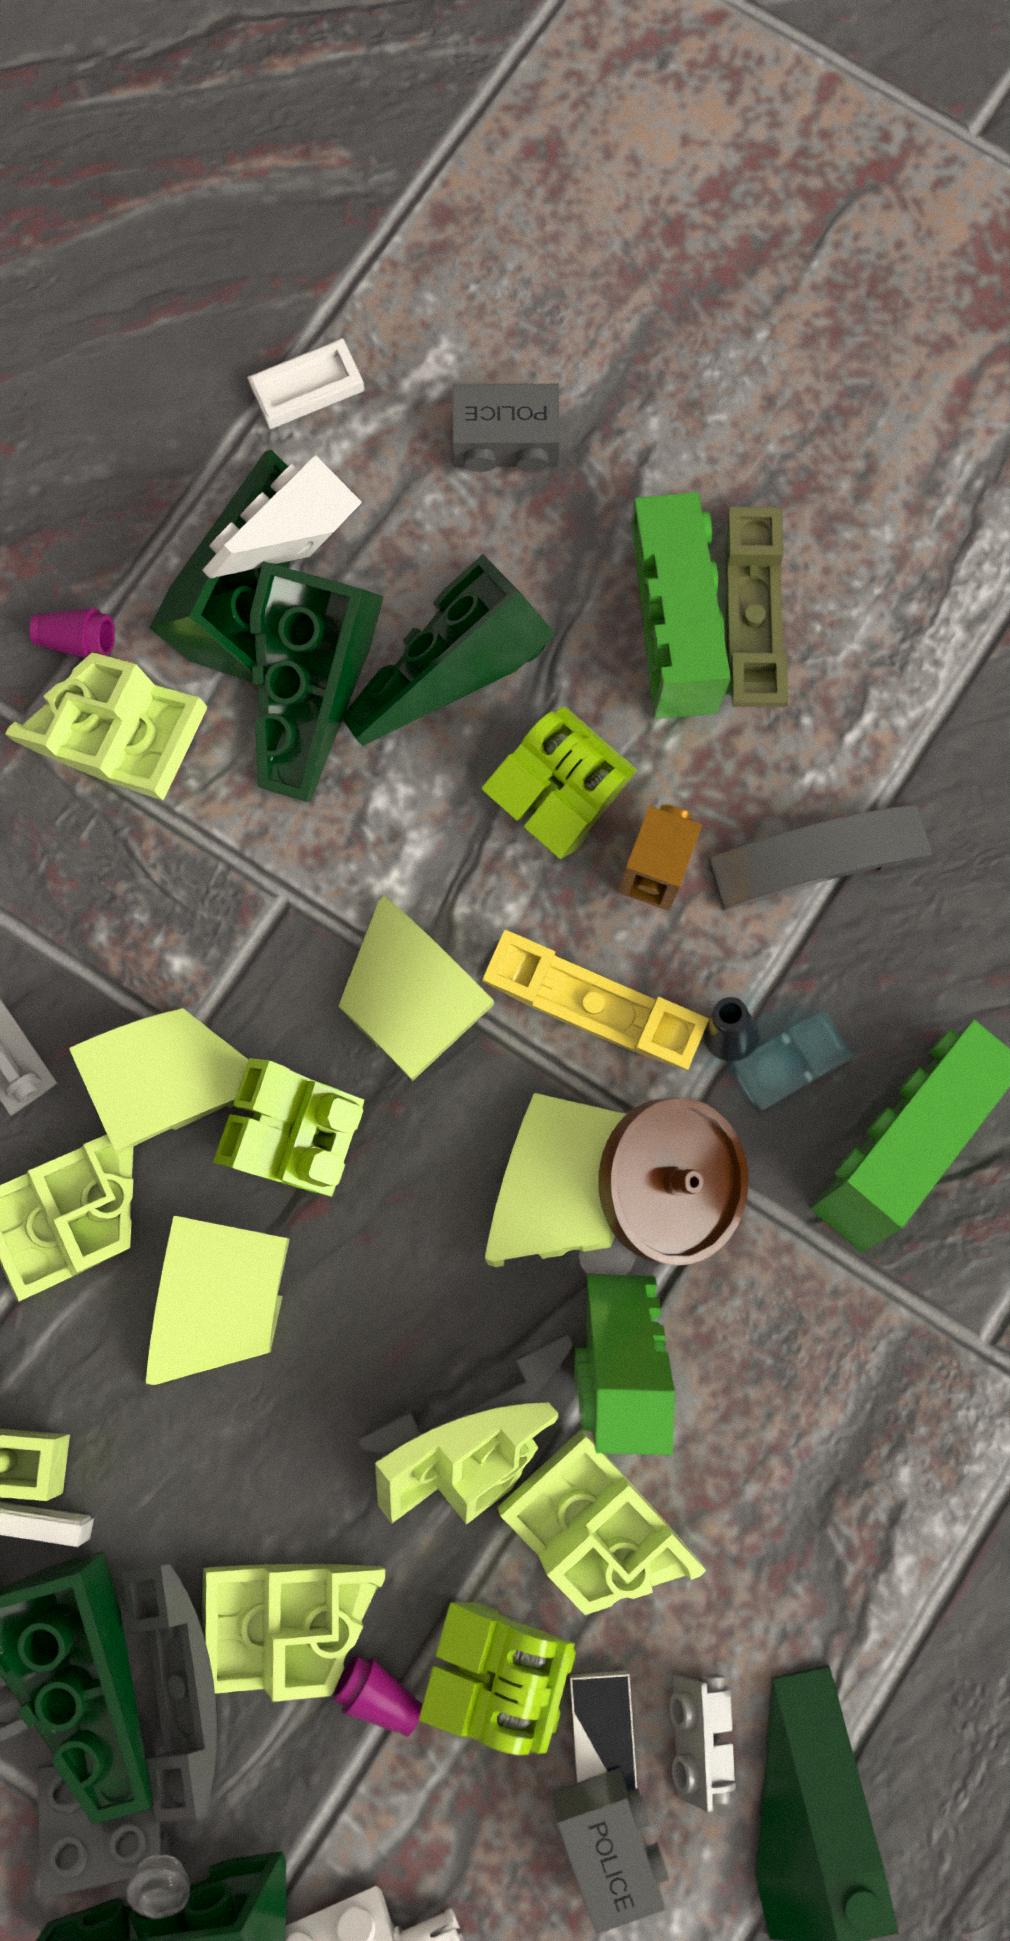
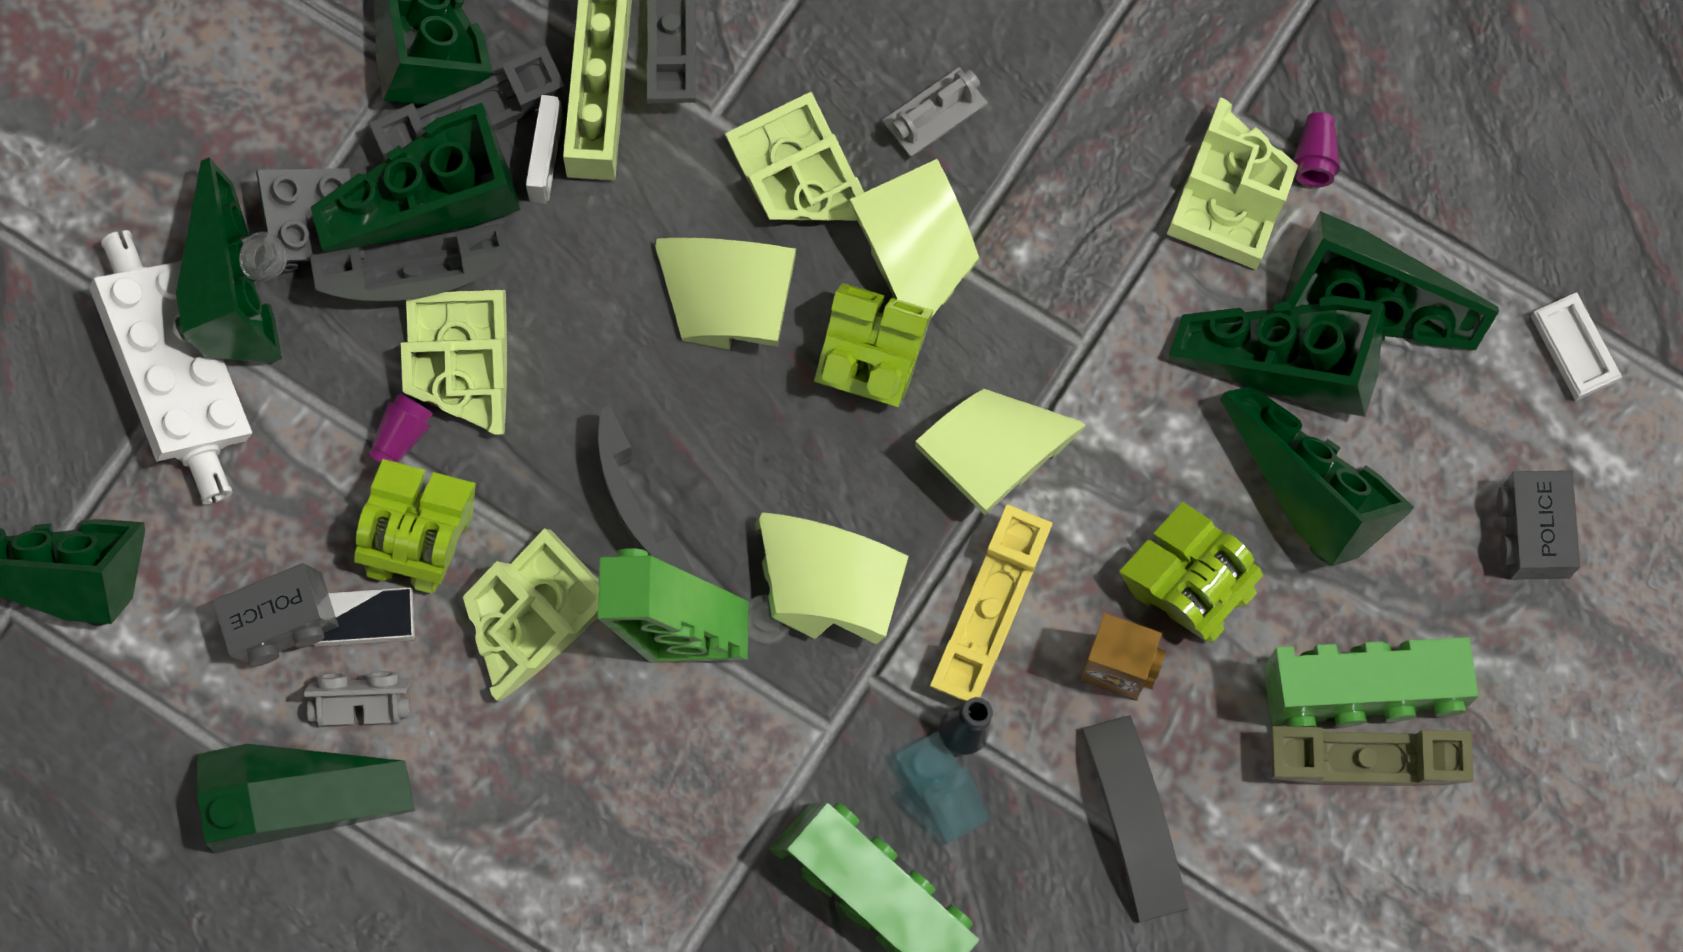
camera: 90 degrees right, 5 degrees down
(287, 526) = (1424, 330): white slope -> none
(466, 1460) = (596, 500): yellowish green slope -> none
(673, 1181) = (829, 670): piece -> none

